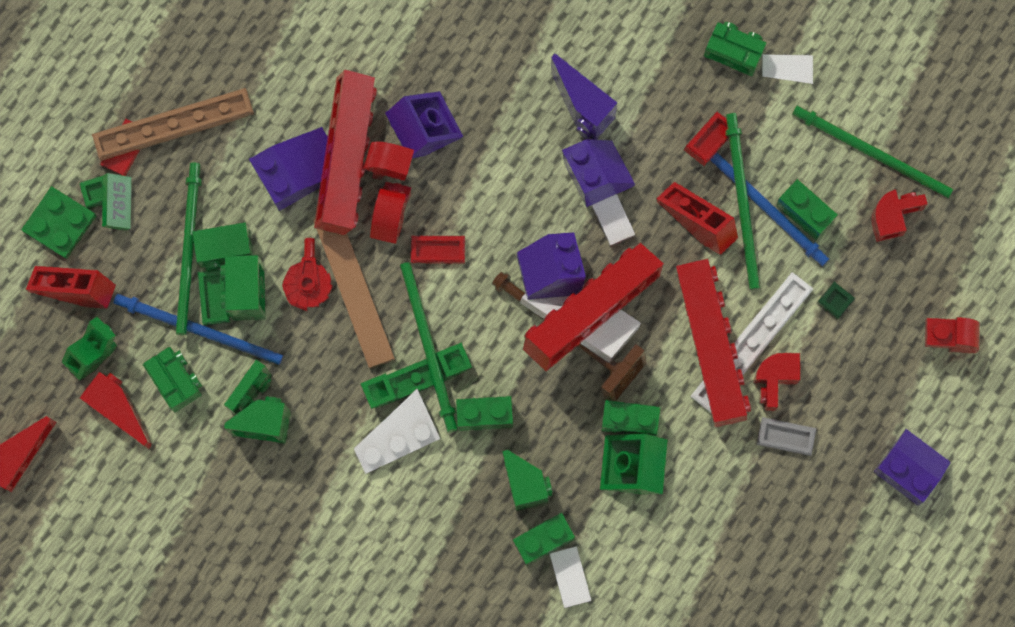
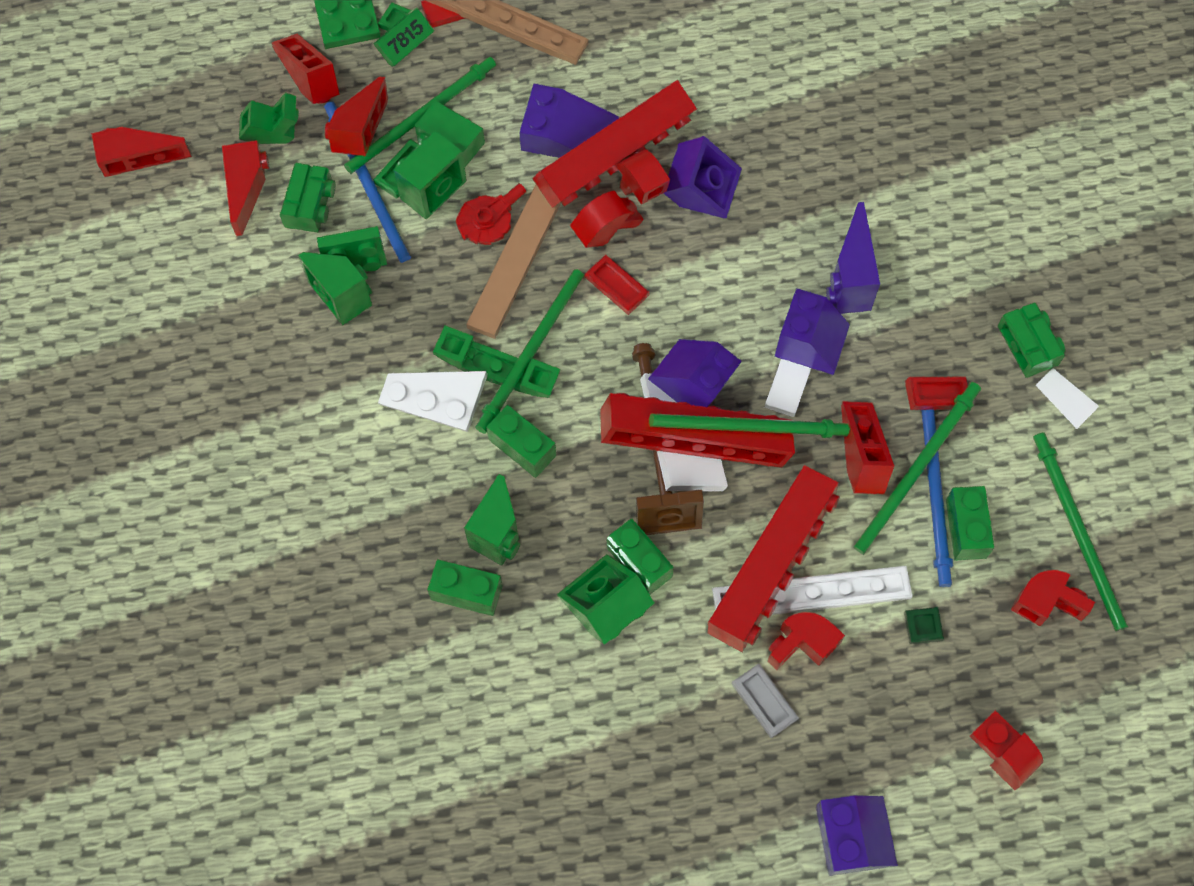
camera: 40 degrees right, 10 degrees down
(153, 295) = (357, 120): none -> red slope
(570, 577) = (457, 643): white tile -> none
(666, 228) = (825, 428): none -> green bar

